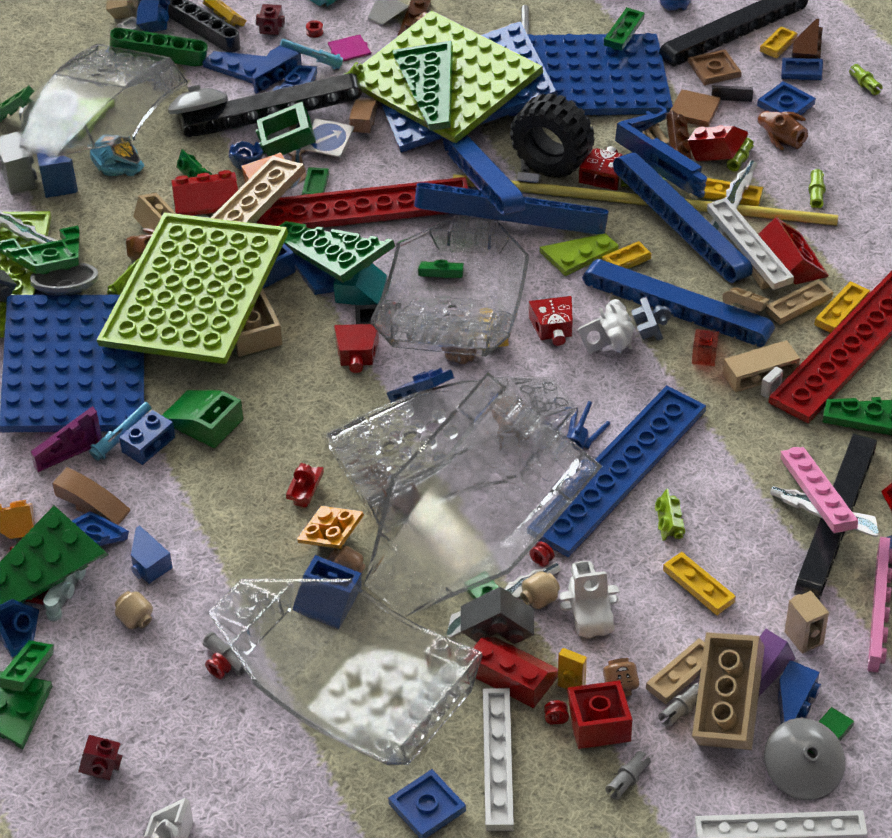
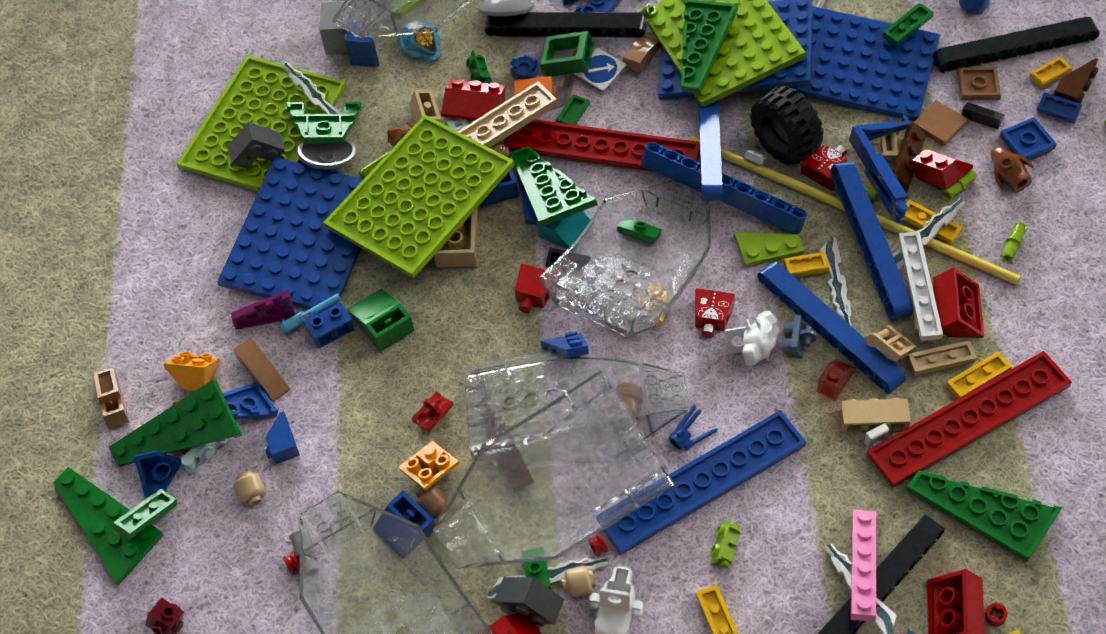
camera: 25 degrees right, 10 degrees up
(663, 265) = (837, 282): none -> white sword

